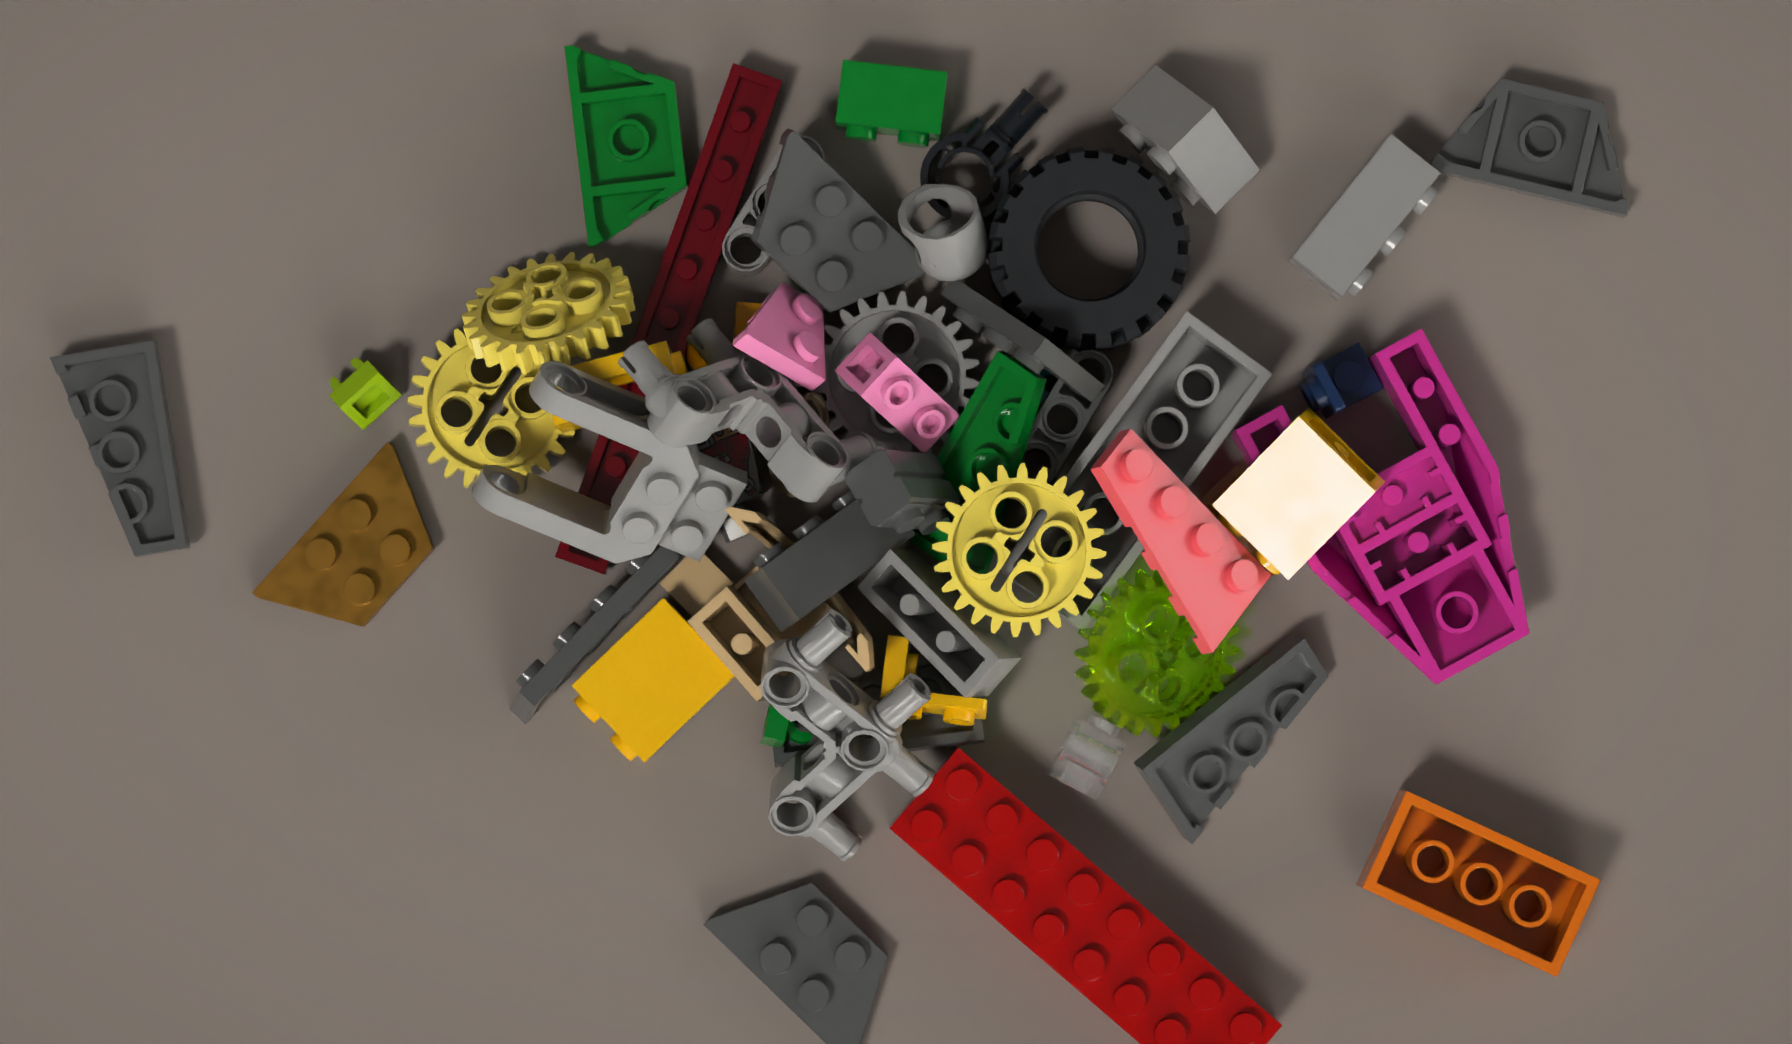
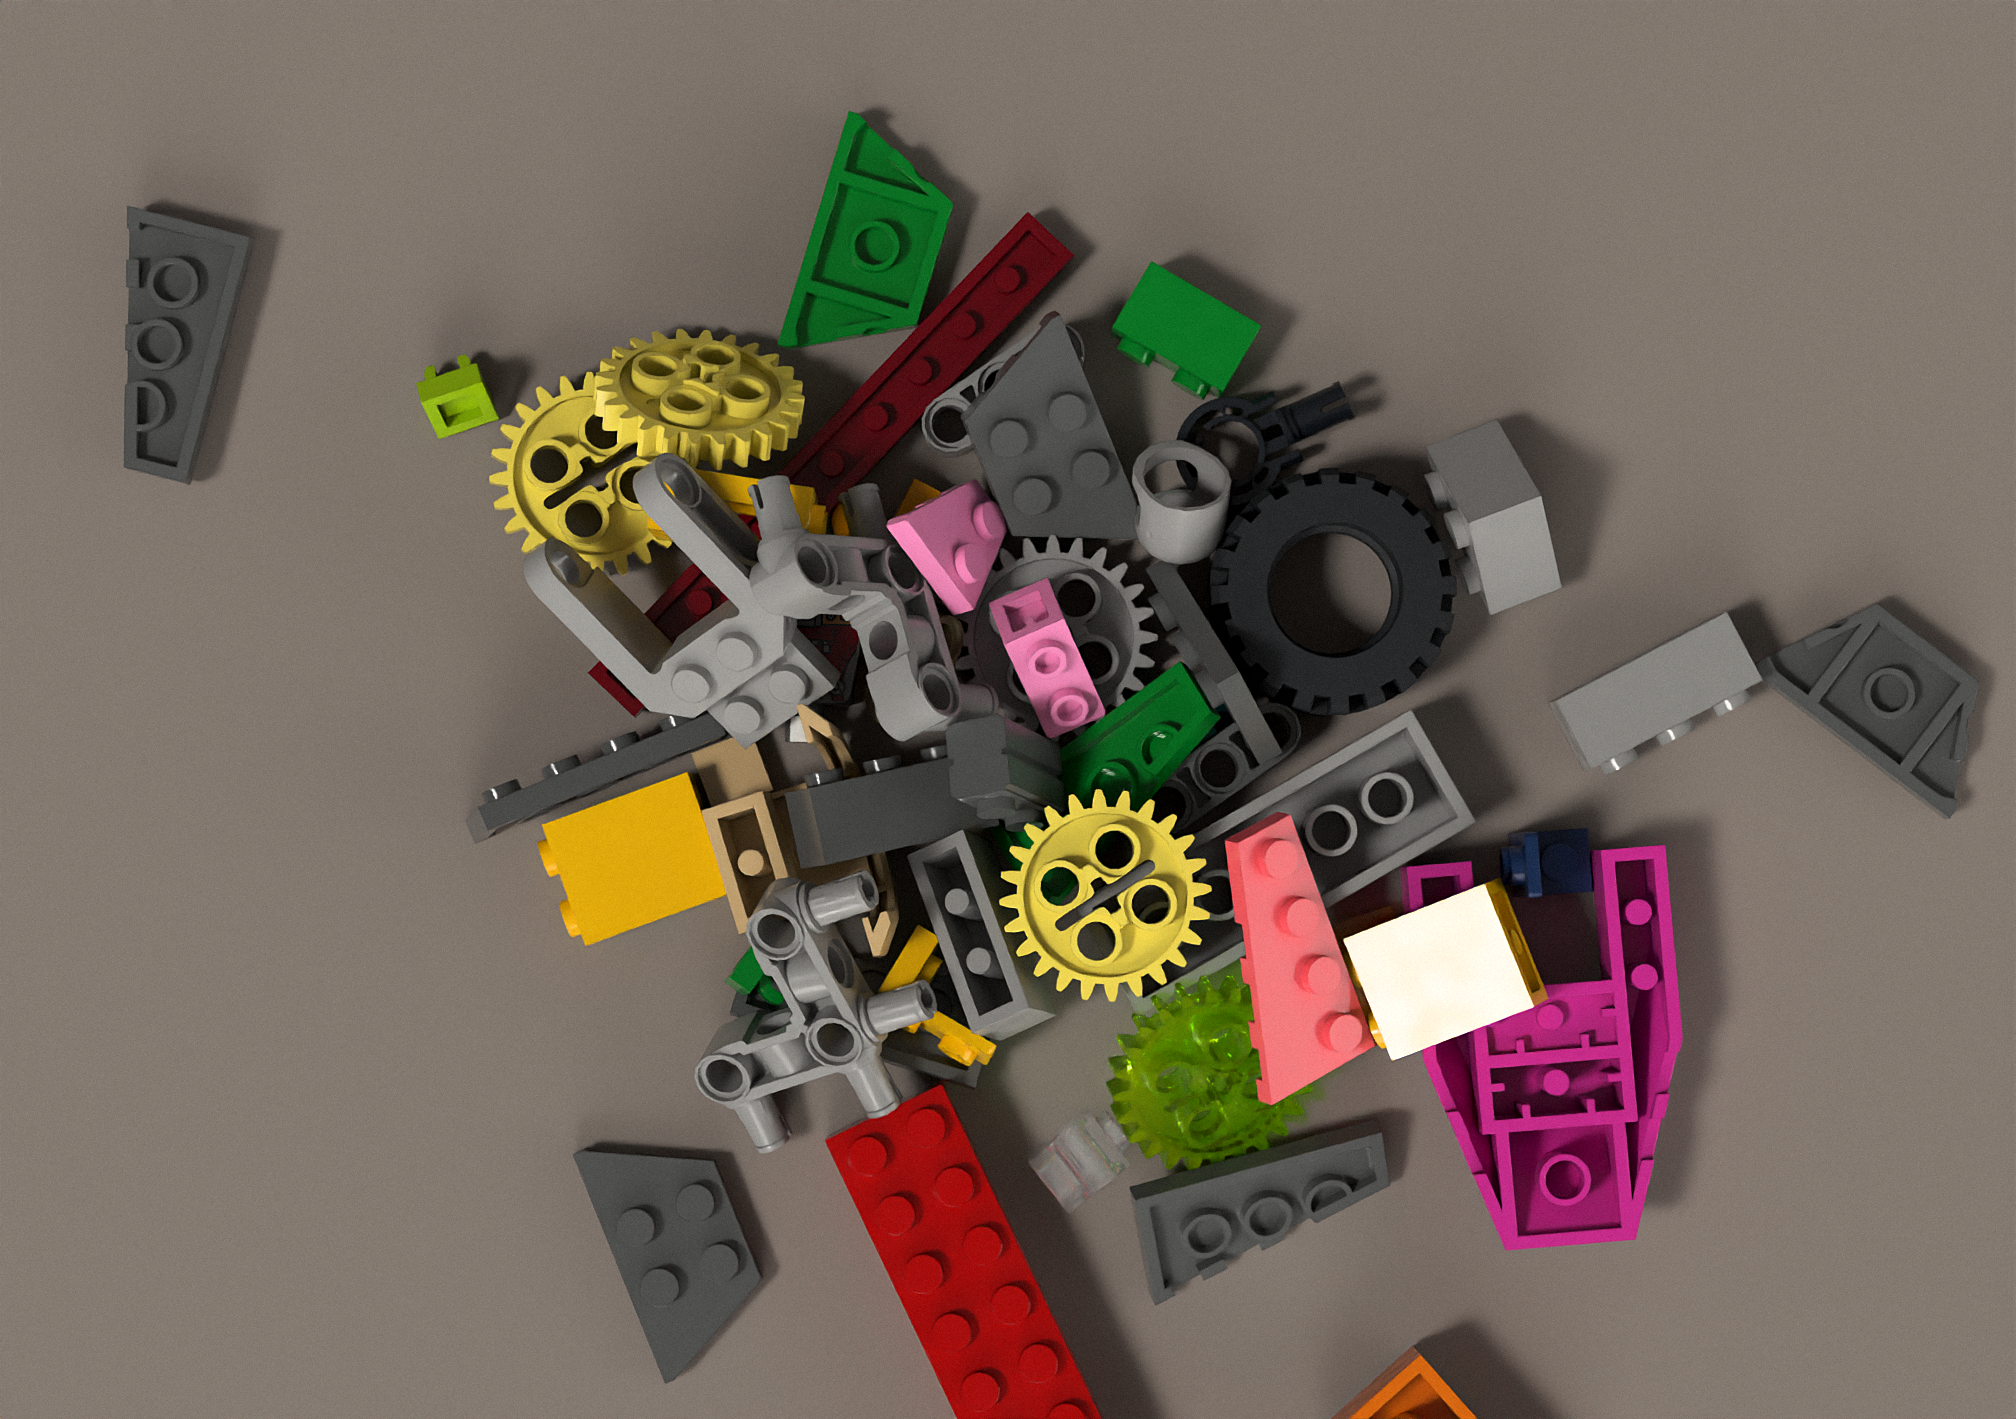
camera: 25 degrees right, 0 degrees up
(355, 549) = (372, 567): pearl gold wing -> none

